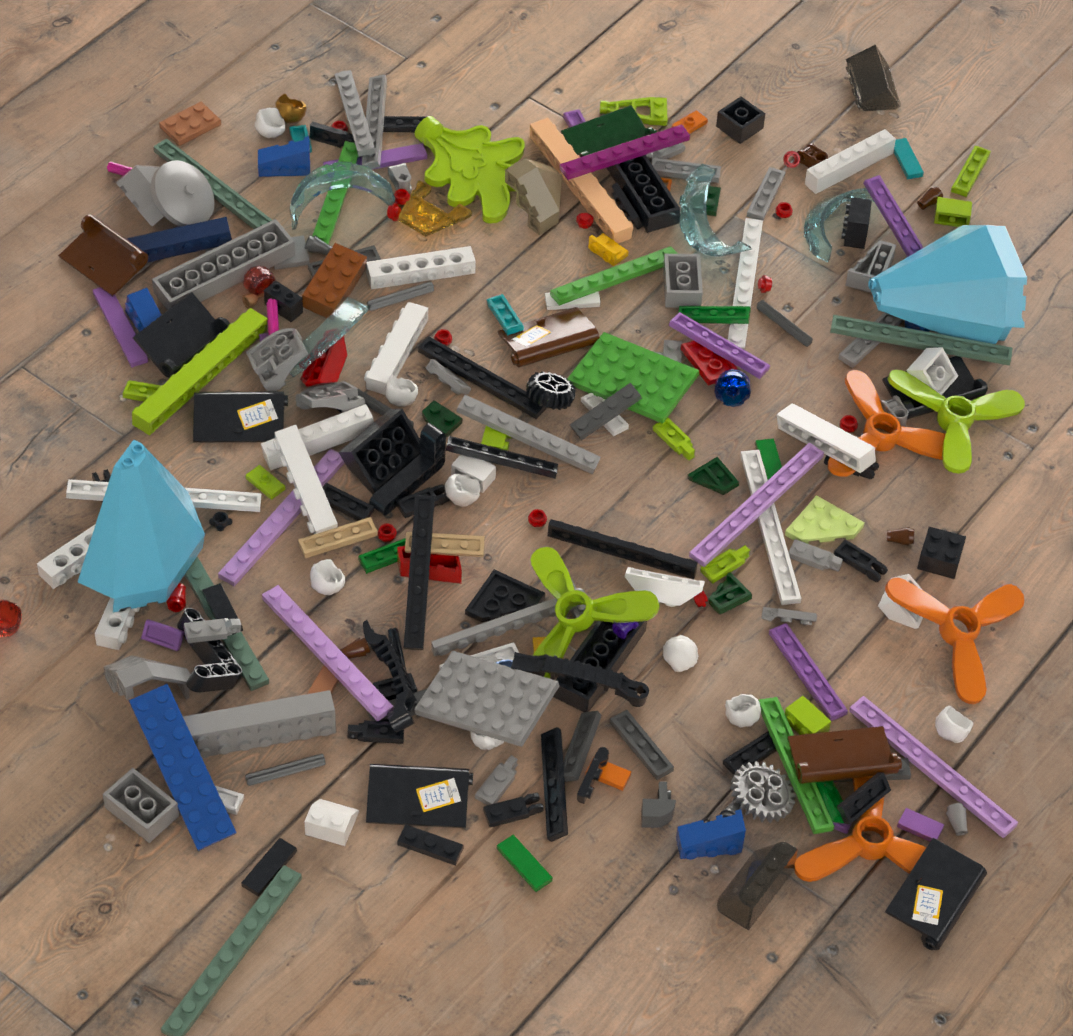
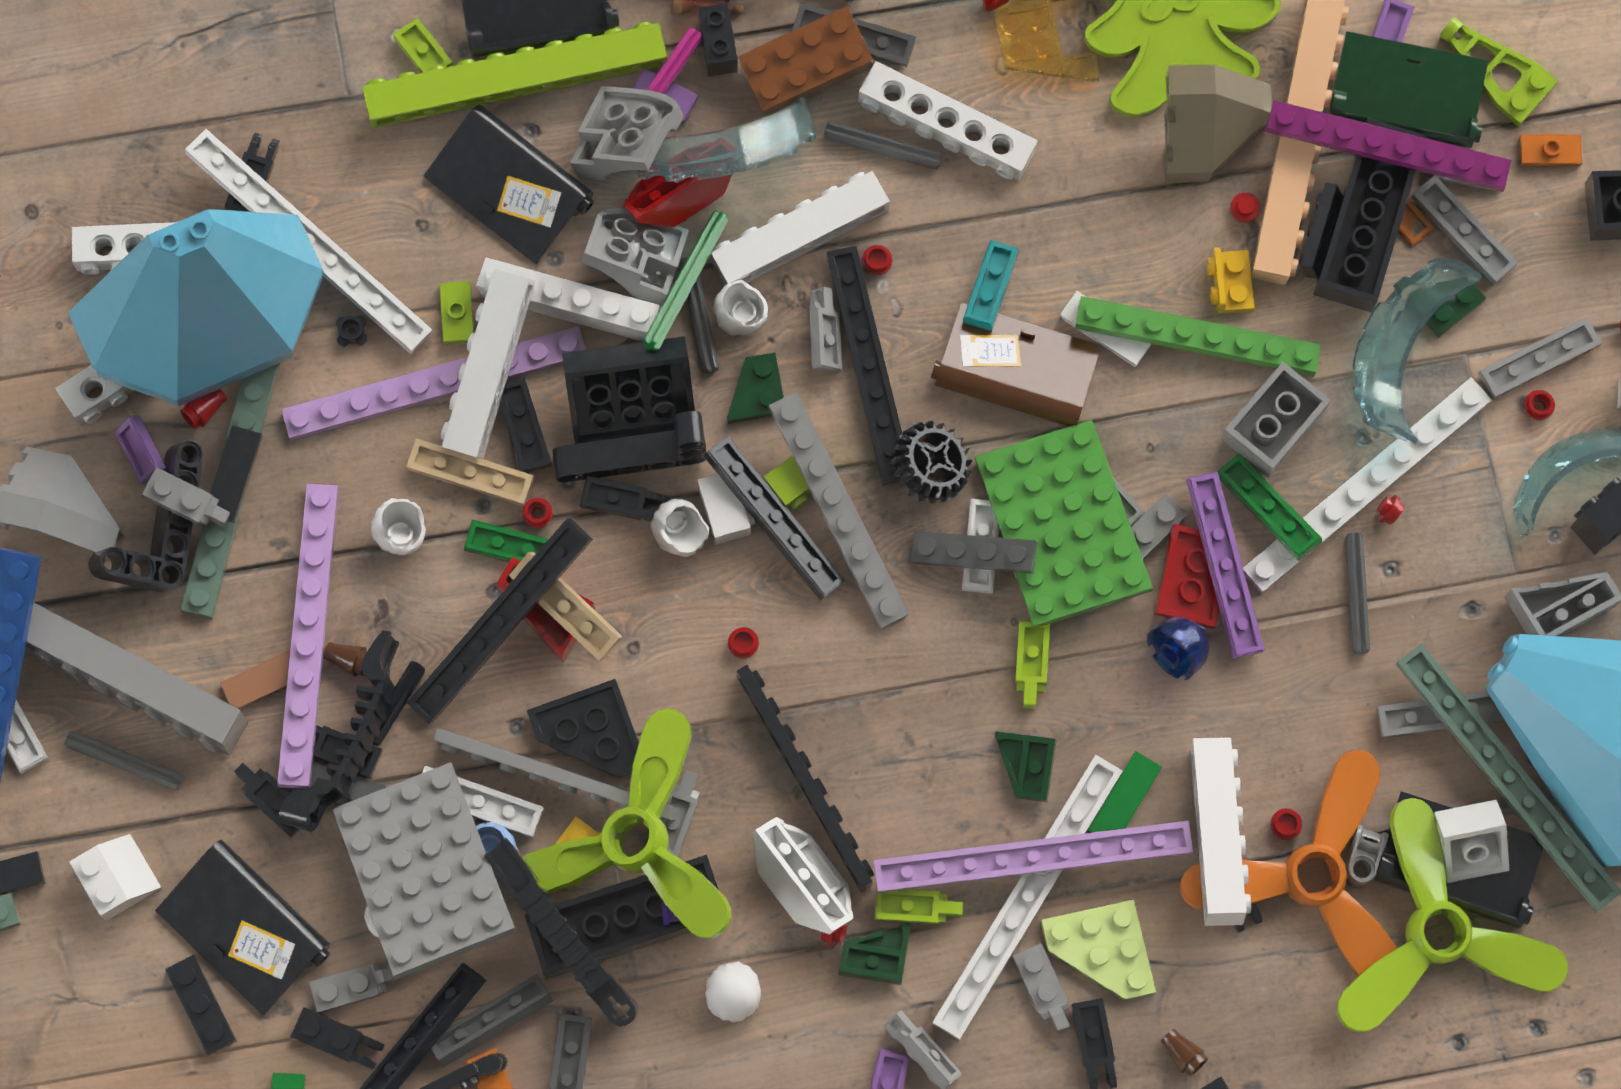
camera: 40 degrees right, 25 degrees up
(366, 392) = (685, 280): none -> axle

